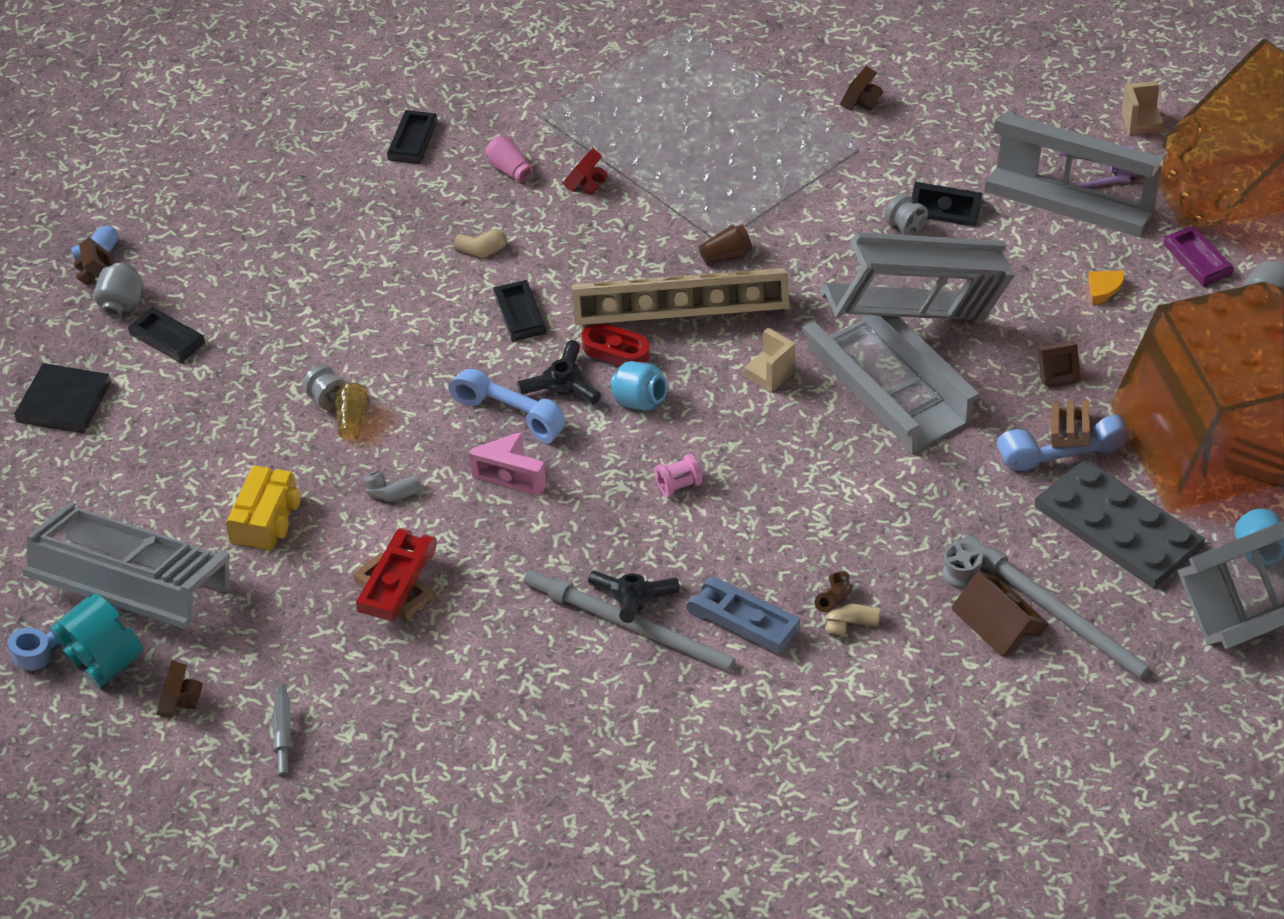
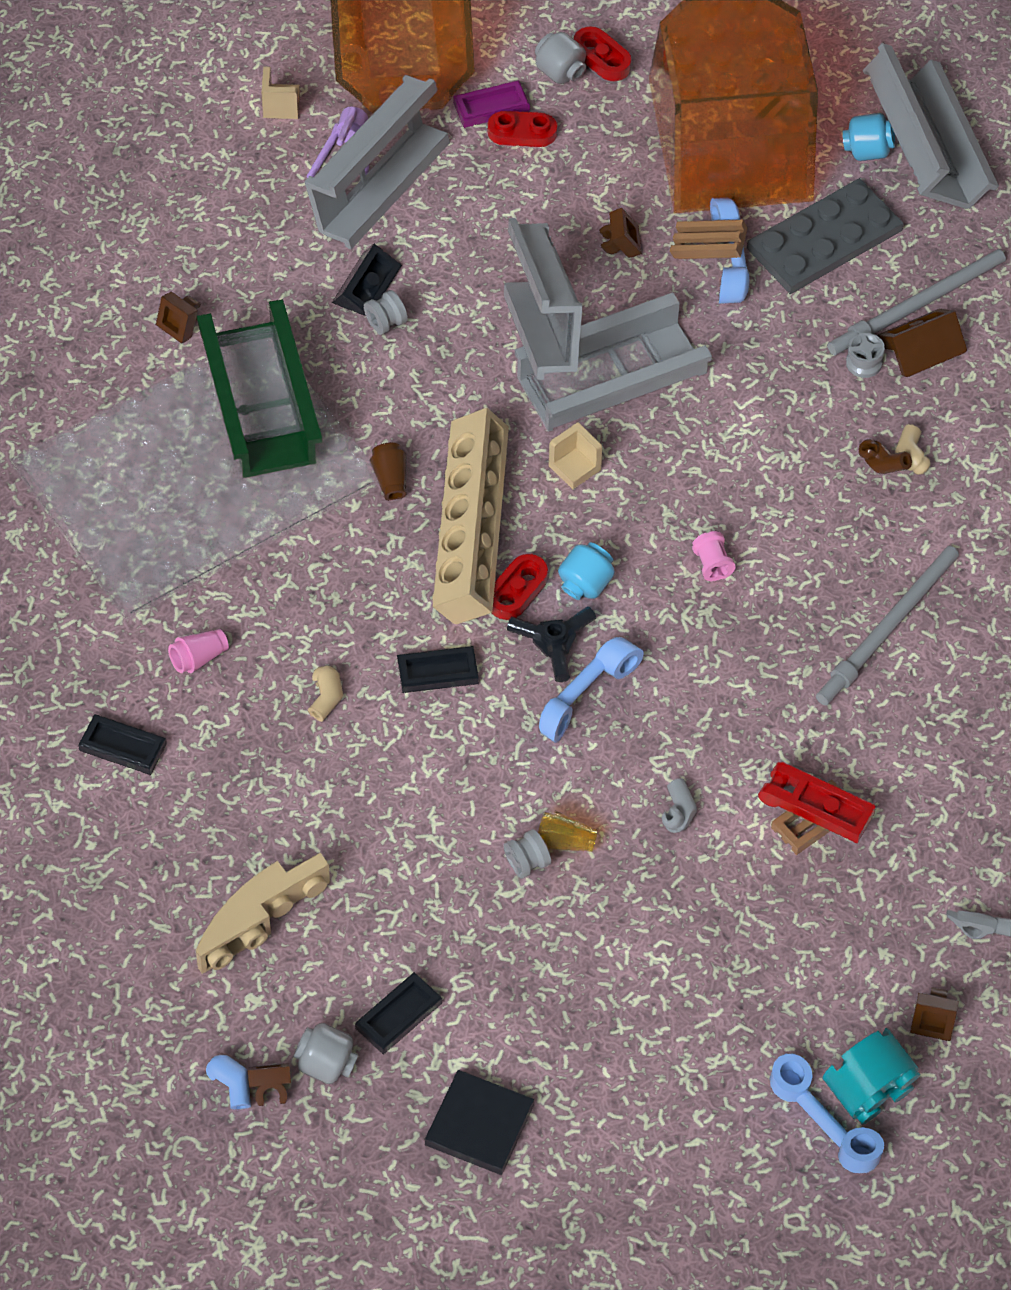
camera: 85 degrees left, 10 degrees up
(123, 564) = (775, 1044): light grey piece -> none
(251, 226) = (246, 915): none -> tan slope
(263, 508) = (696, 922): yellow brick -> none
(506, 465) = (674, 699): bright pink slope -> none
(585, 172) = (240, 581): red tile -> none
(632, 590) = (862, 614): black piece -> none
(744, 614) = (898, 530): sand blue plate -> none
(774, 134) = (262, 393): none -> piece
(1104, 285) = (517, 181): light orange tile -> none
(1173, 277) = (522, 129): none -> red plate

